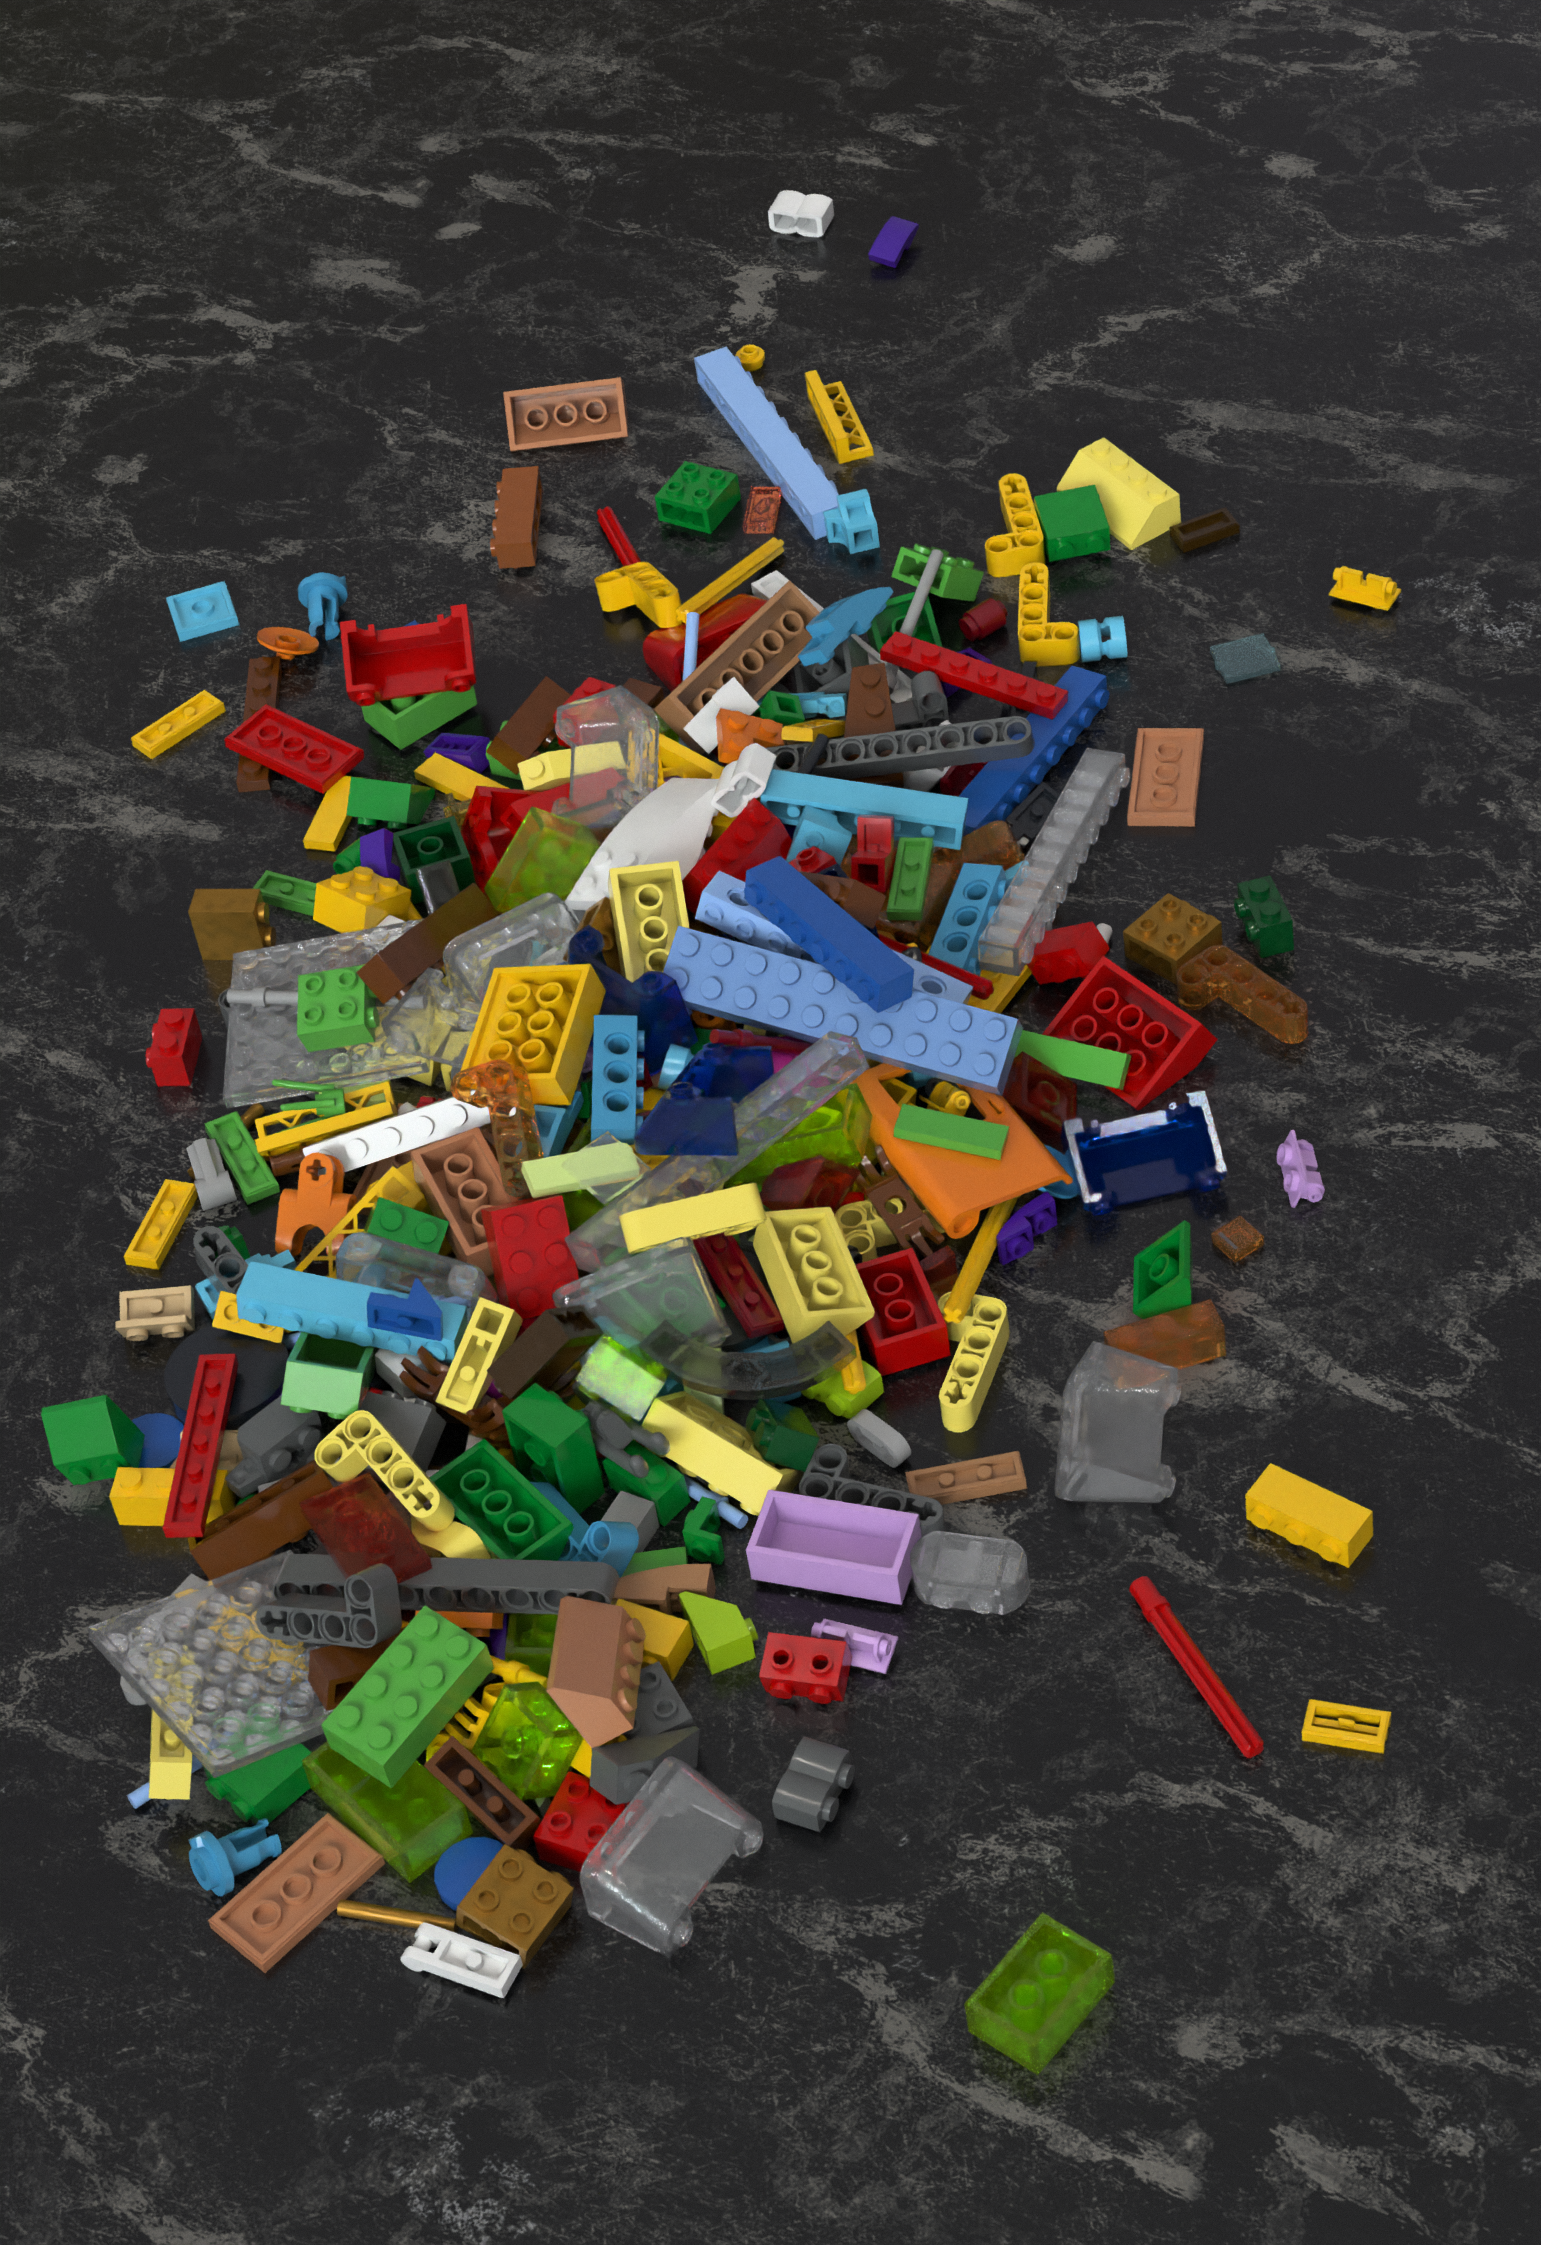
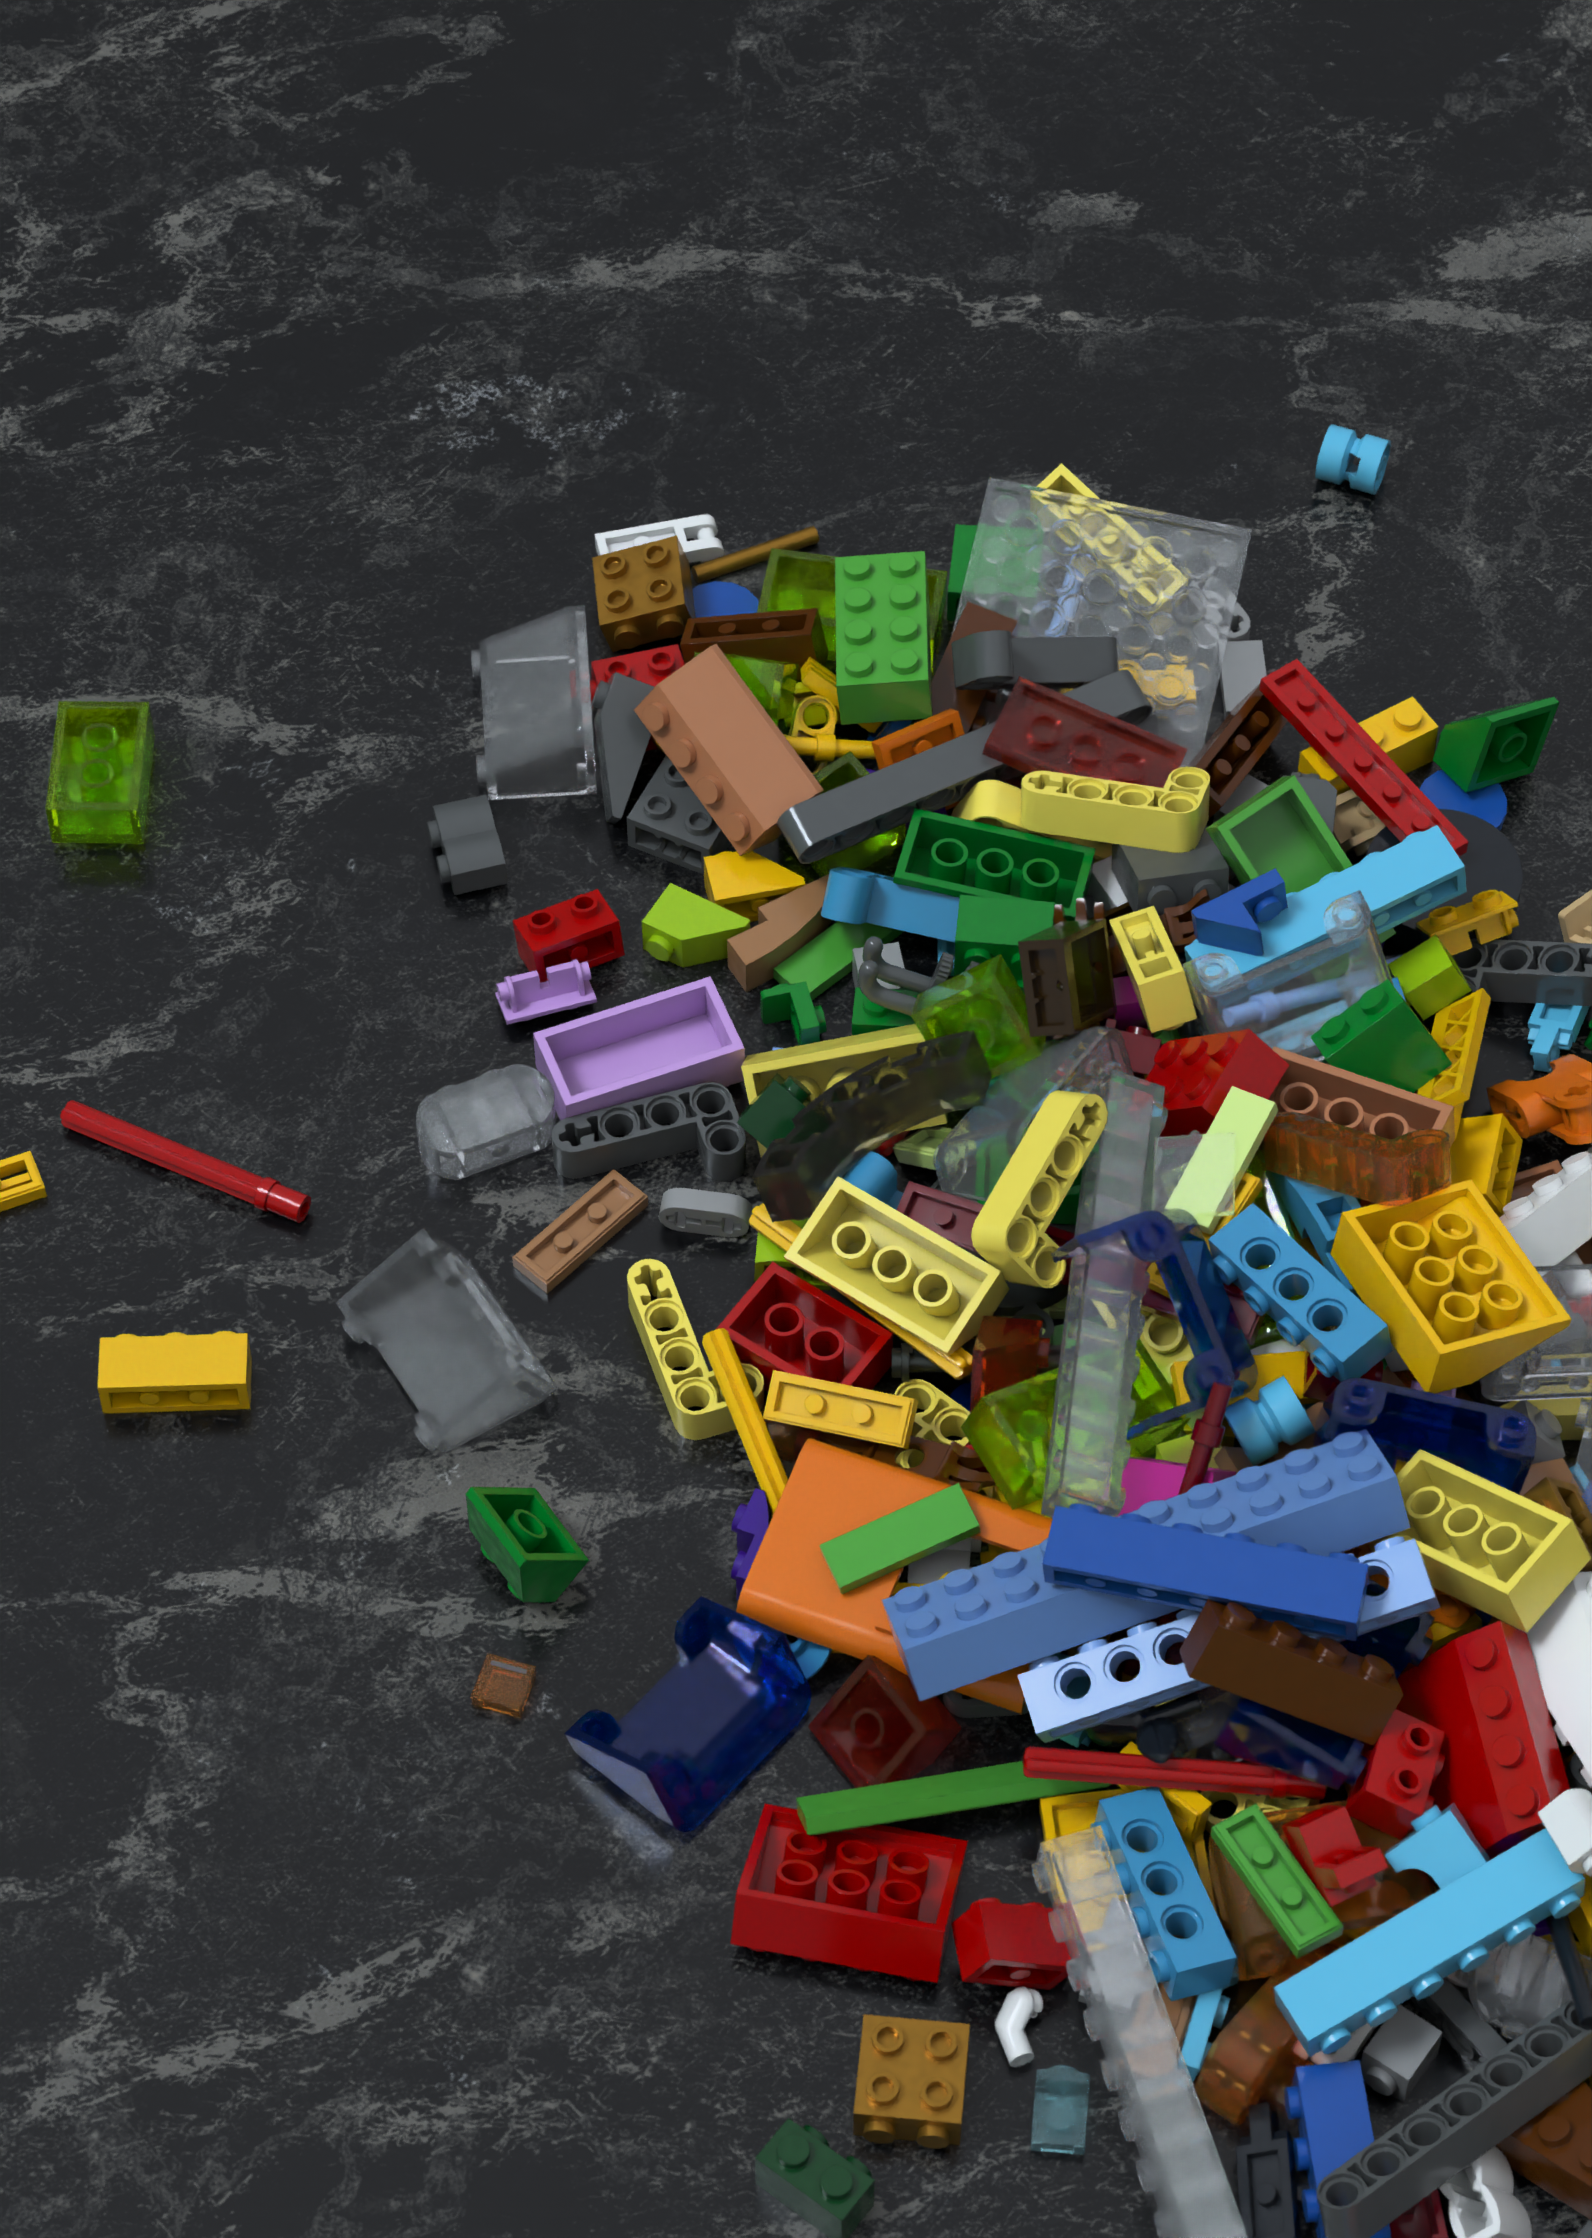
camera: 135 degrees right, 10 degrees up
(221, 1859) = (949, 485): dark azure piece -> none
(296, 1892) = (869, 504): nougat tile -> none
(915, 1238) = (840, 1409): none -> yellow tile
(1106, 898) = (1060, 2110): none -> clear light blue bracket
(1175, 1337) = (496, 1456): clear orange brick -> none
(1246, 988) = (744, 2035): clear orange beam -> none
(1299, 1170) = (508, 1827): lavender hinge -> none

